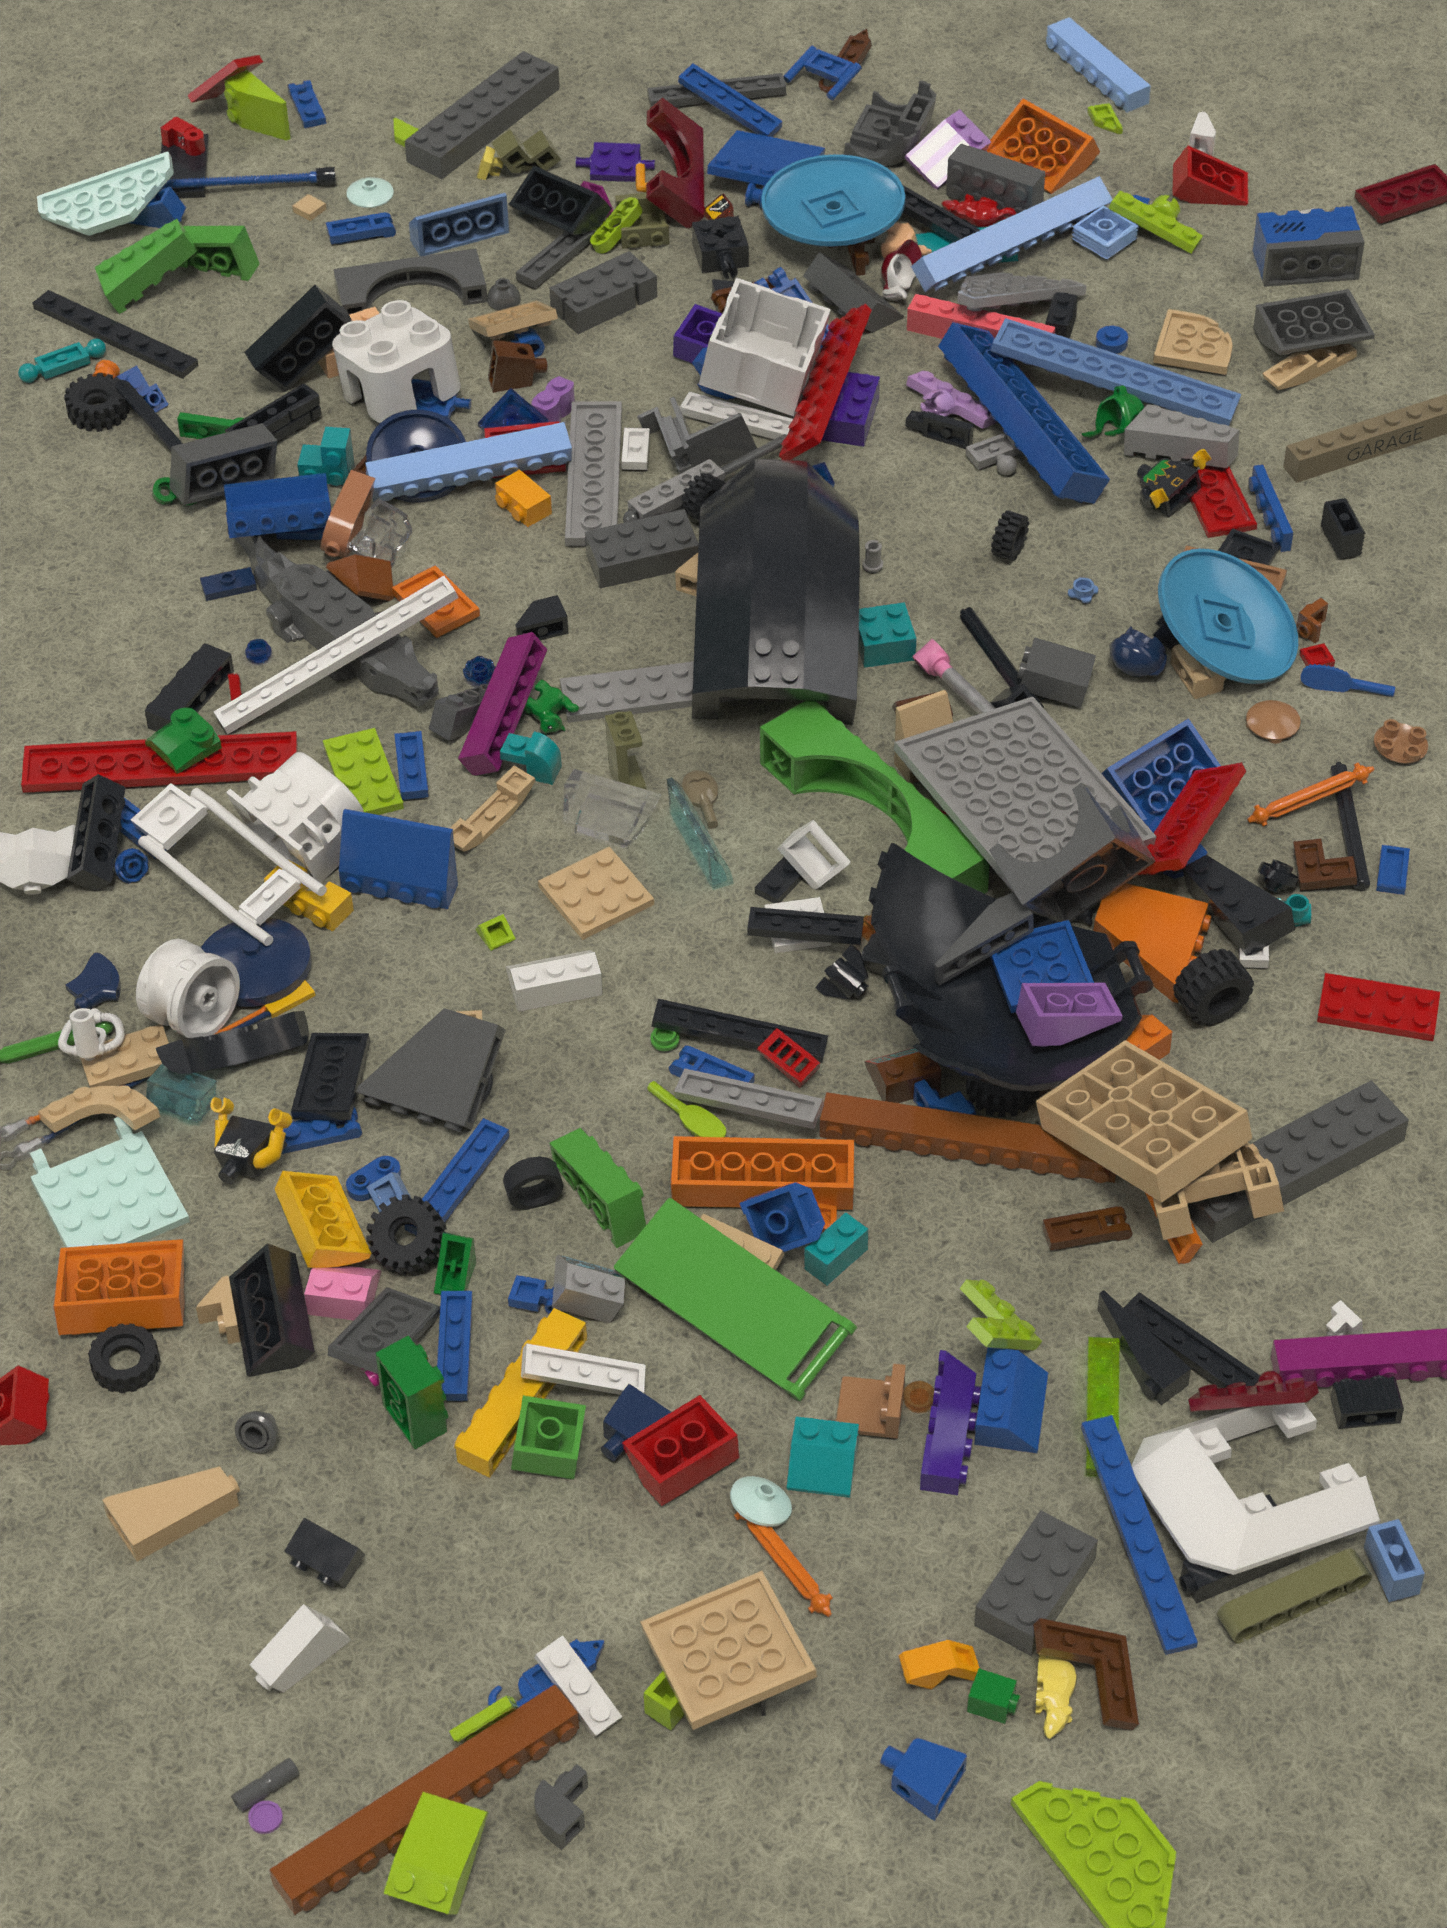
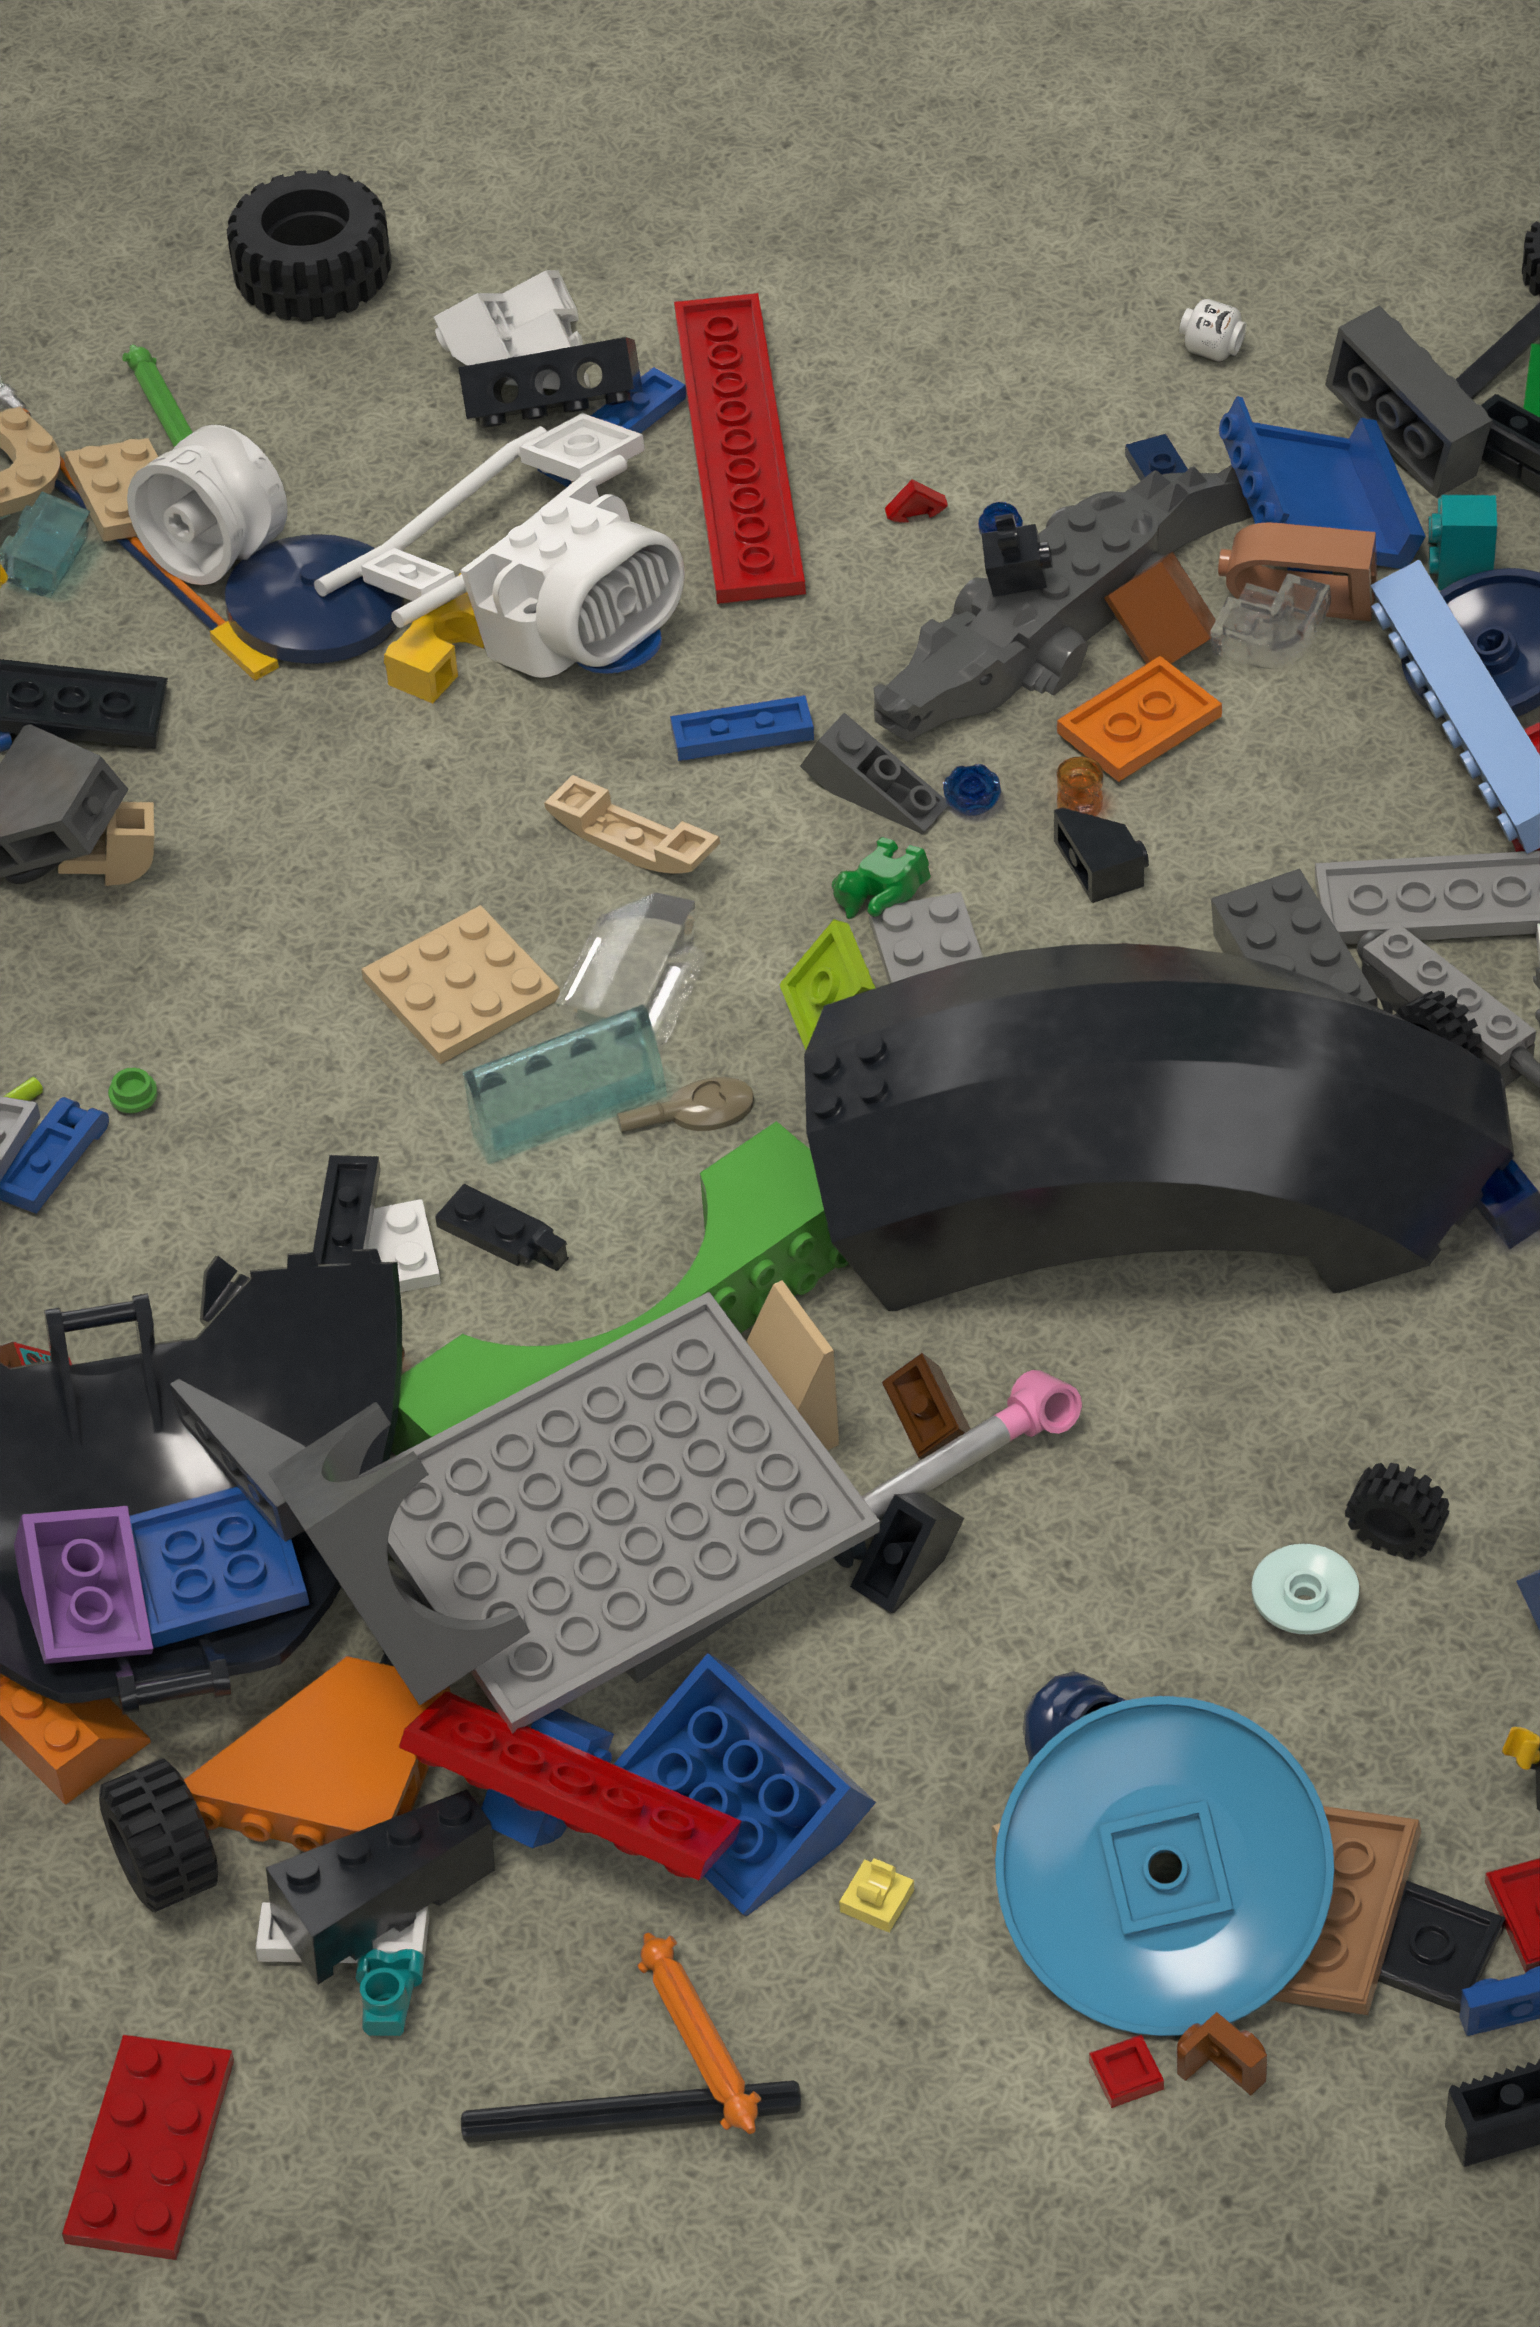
camera: 90 degrees right, 0 degrees up
(85, 1033) = (118, 414): white piece -> none
(96, 983) = (289, 442): dark blue arm -> none
(118, 549) = (1213, 330): none -> white head
(138, 868) = (504, 430): blue plate -> none
(184, 740) = (764, 451): green slope -> none
(191, 685) = (893, 451): black brick -> none
(235, 1045) = (122, 578): black brick -> none
(335, 654) = (949, 587): white plate -> none
(342, 610) = (1015, 557): none -> black brick
(364, 769) = (728, 673): lime plate -> none
(397, 859) = (484, 720): blue slope -> none
(490, 625) = (1080, 785): none -> clear orange wheel
(495, 932) = (374, 868): lime slope -> none
(502, 703) = (866, 809): magenta brick -> none
(523, 498) = (1416, 801): light orange brick -> none
(537, 753) = (748, 865): teal brick -> none
(555, 980) = (266, 939): white slope -> none
(623, 735) = (727, 964): olive panel -> none
(649, 719) = (824, 975): none -> lime bracket
(732, 1028) = (131, 1180): black tile -> none
(805, 1074) = (52, 1254): red slope -> none
(808, 859) = (511, 1240): white tile -> none
(873, 561) = (1320, 1312): light grey pin -> none
(886, 635) = (1103, 1329): teal brick -> none
(991, 648) = (1063, 1524): black axle -> none
(1049, 575) = (1309, 1572): none -> light aqua dish
(1056, 671) = (1012, 1597): dark grey brick -> none
(1083, 590) = (1281, 1641): medium blue plate -> none
(1223, 737) = (877, 1894): none -> light yellow tile
(1273, 720) = (929, 1984): medium nougat dish -> none
(1278, 875) = (472, 1963): black plate -> none
(1319, 872) = (500, 2038): reddish brown plate -> none
(1337, 680) = (1050, 2095): blue piece -> none
(1393, 869) = (514, 2188): blue tile -> none
(1401, 742) = (872, 2214): medium nougat dish -> none

